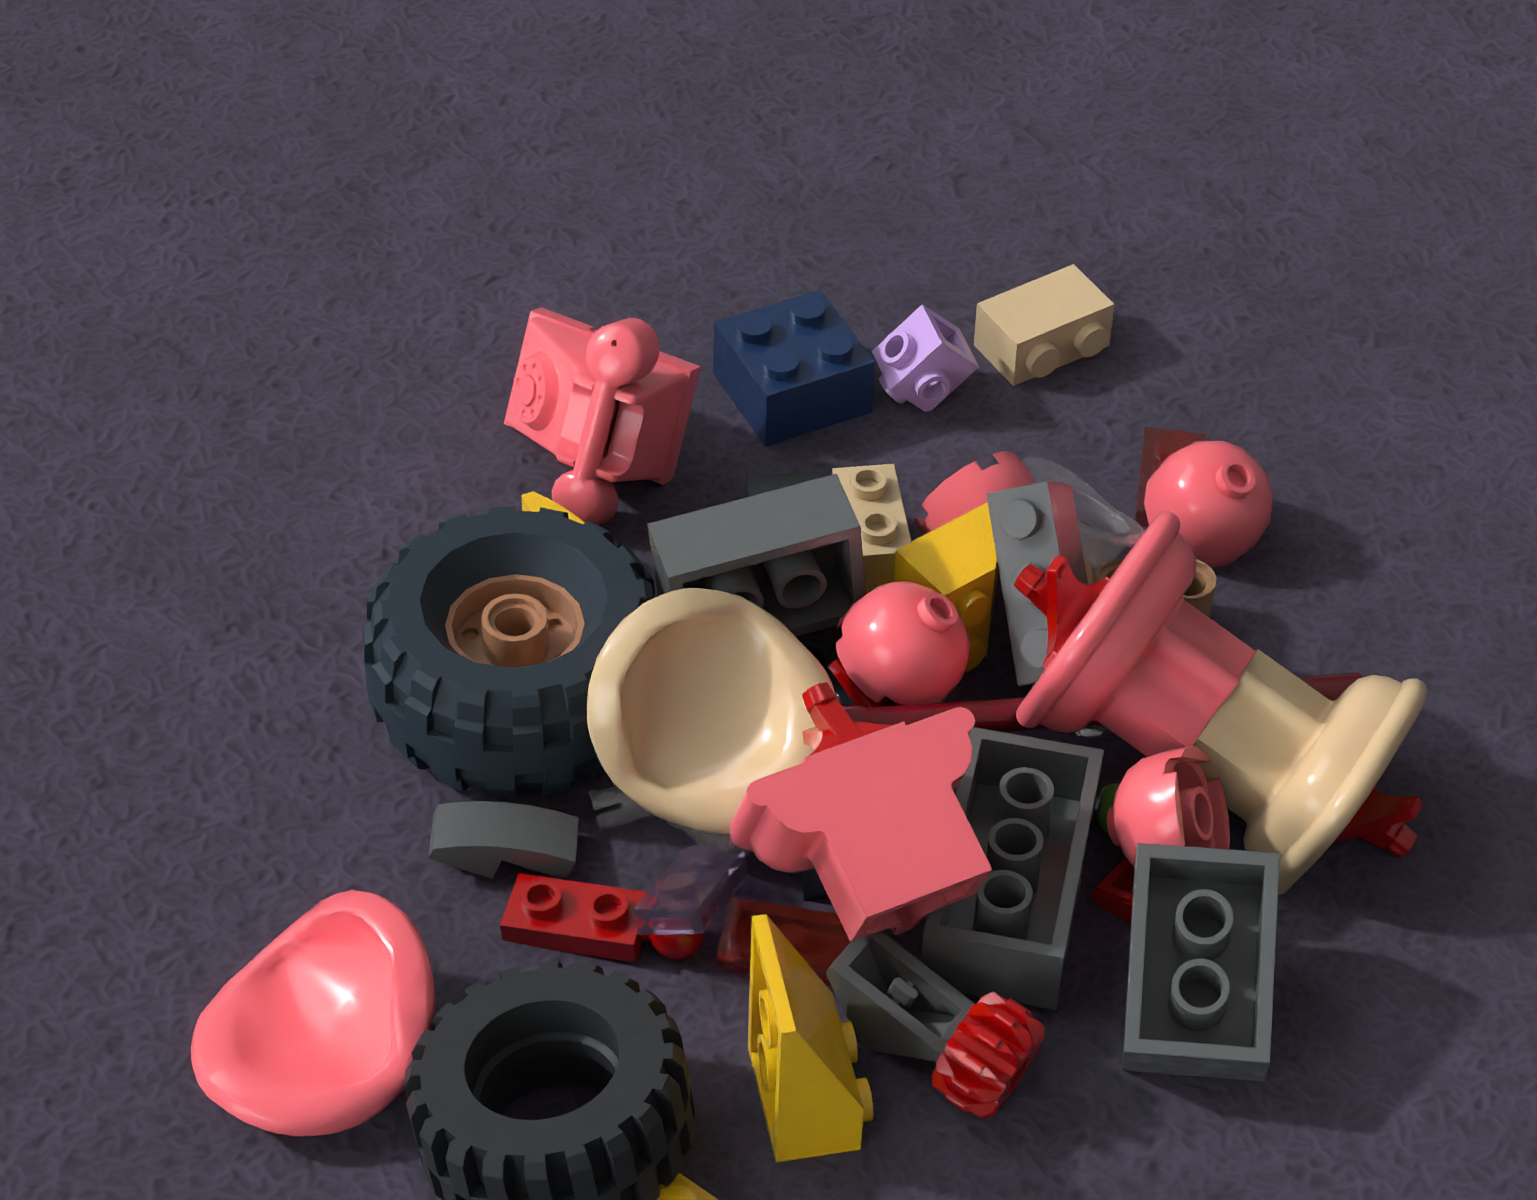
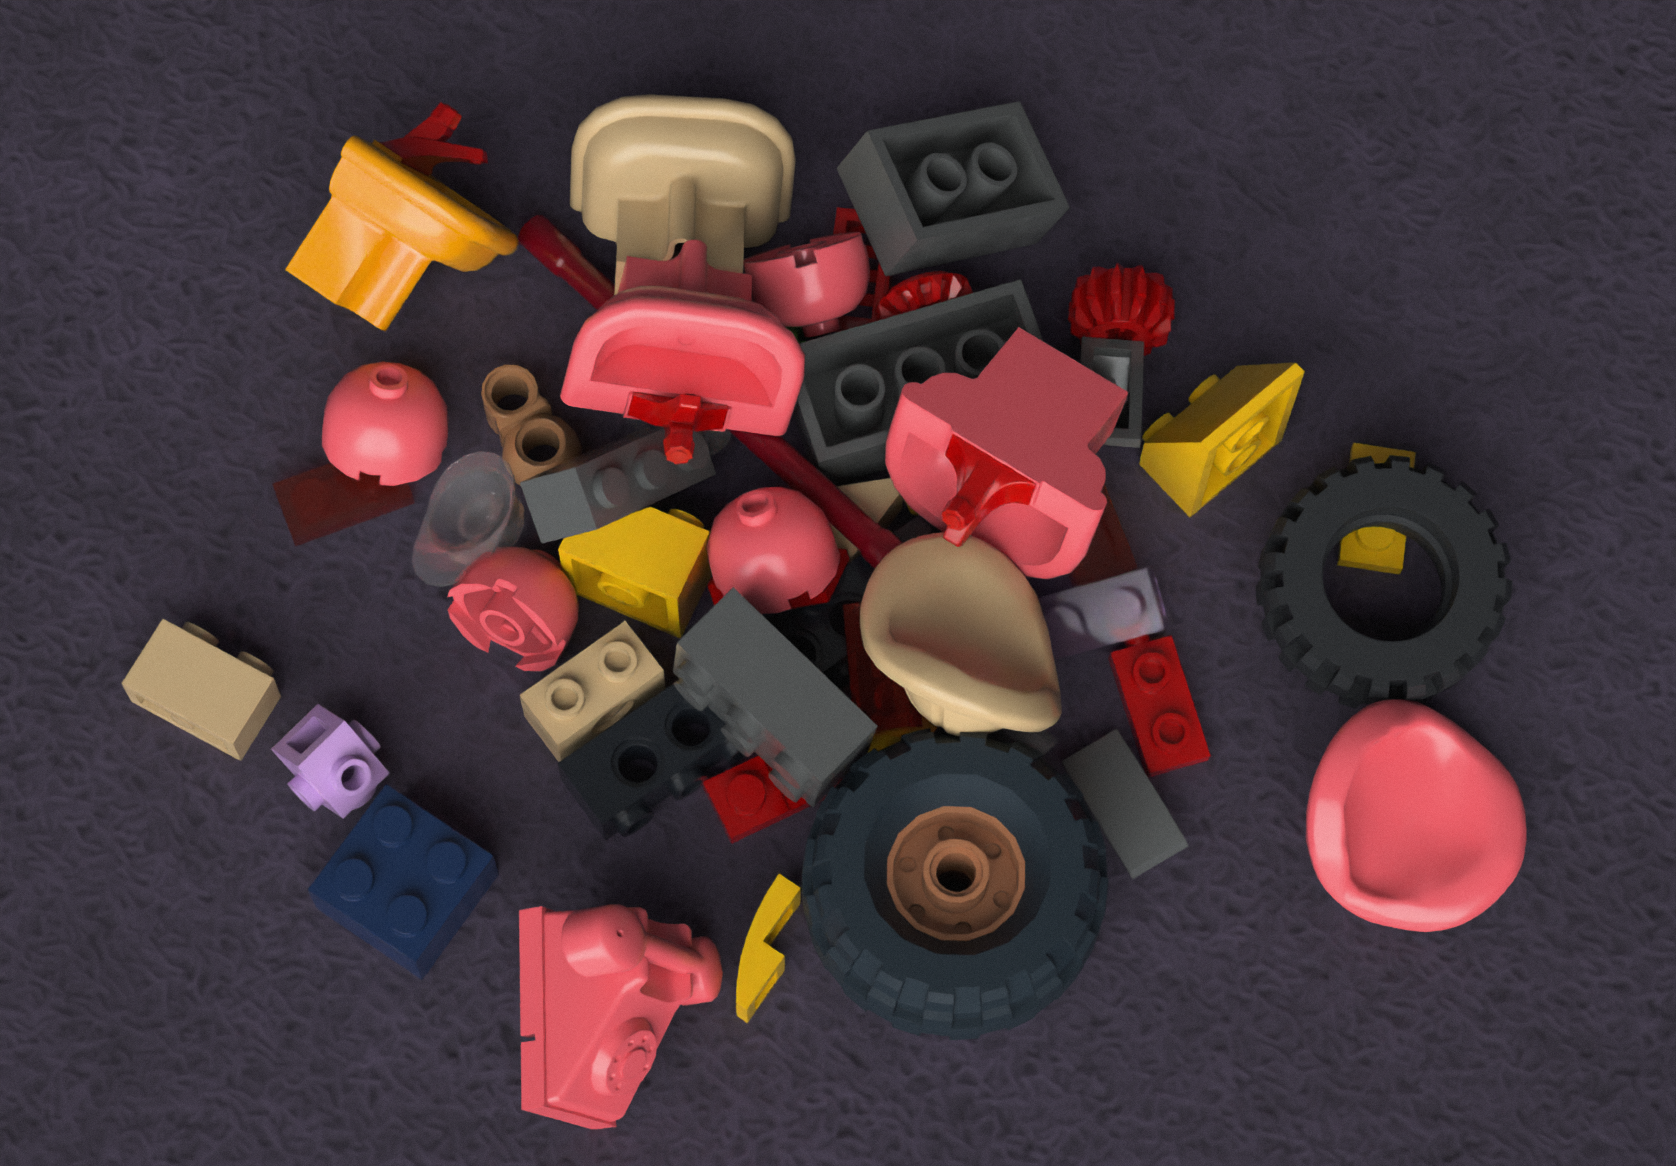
camera: 120 degrees left, 25 degrees up
(1095, 908) = (921, 292): none -> red gear
(1397, 559) = (395, 220): none -> light orange piece

